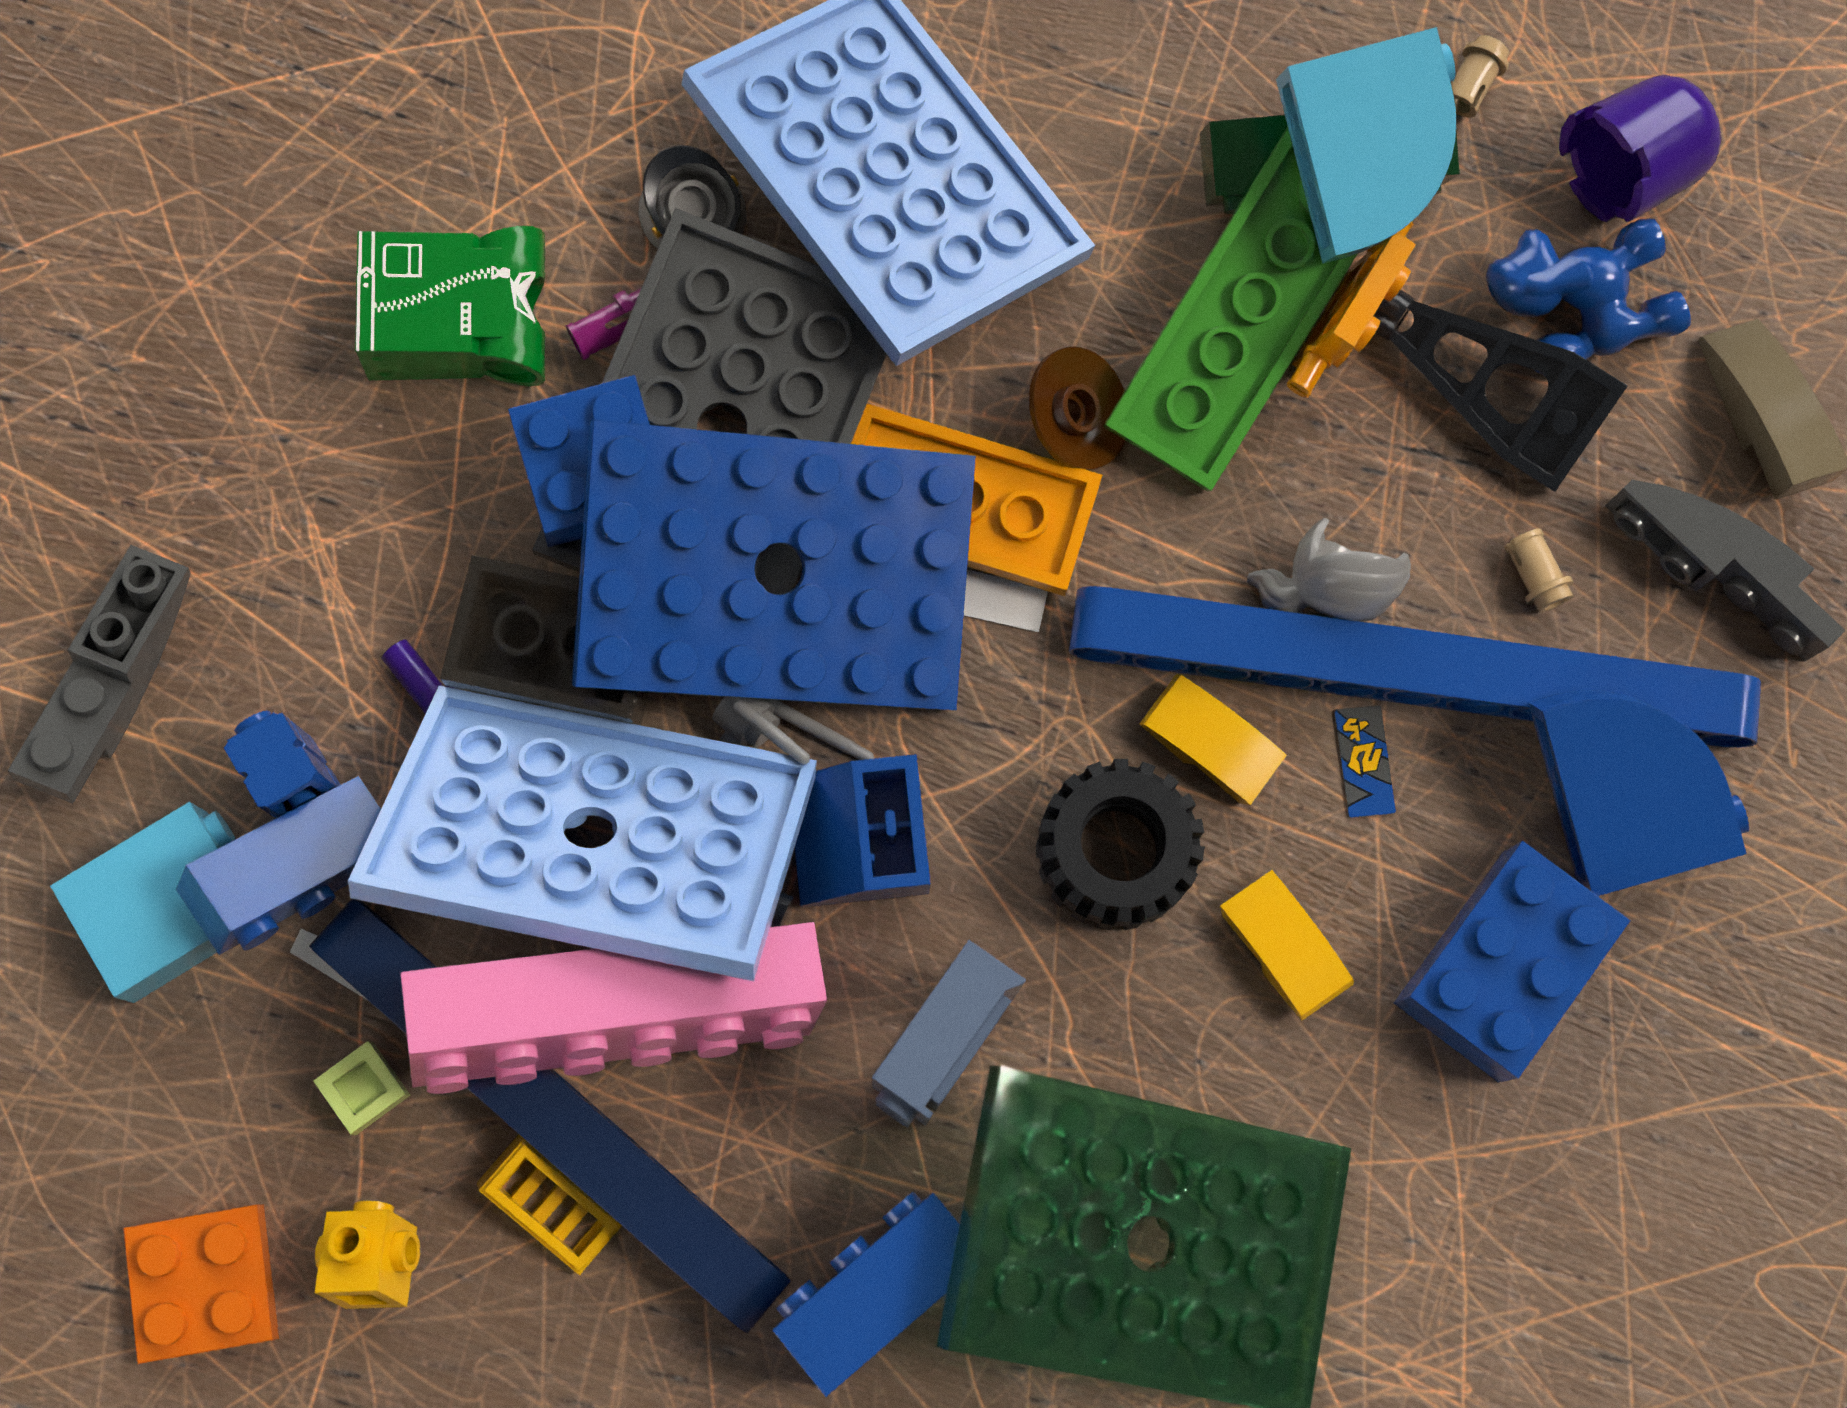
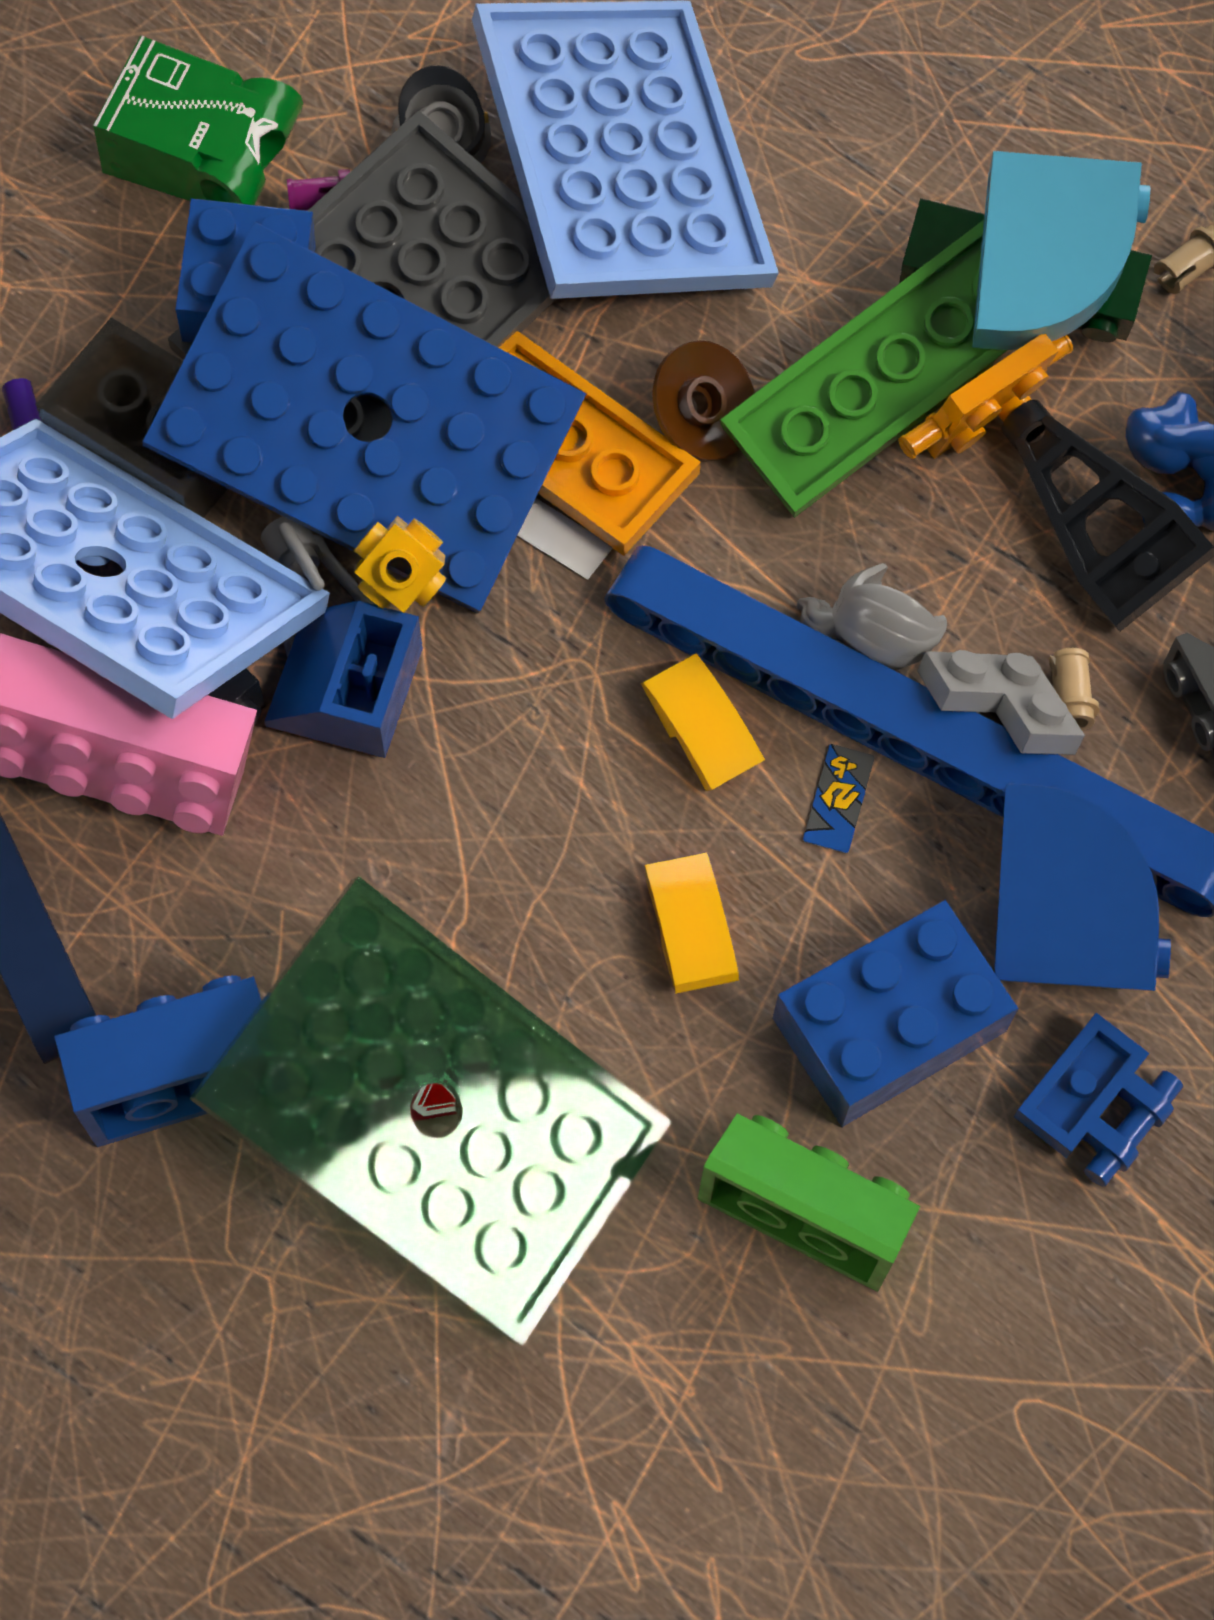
camera: 25 degrees right, 10 degrees down
(878, 709) = (411, 542): none -> yellow brick
(945, 1035) = (316, 846): sand blue window -> none
(1153, 803) = (572, 725): black tyre -> none
(1492, 597) = (1006, 686): none -> light grey plate
(1513, 1172) = (807, 1199): none -> bright green slope
(1703, 961) = (1082, 1086): none -> blue plate

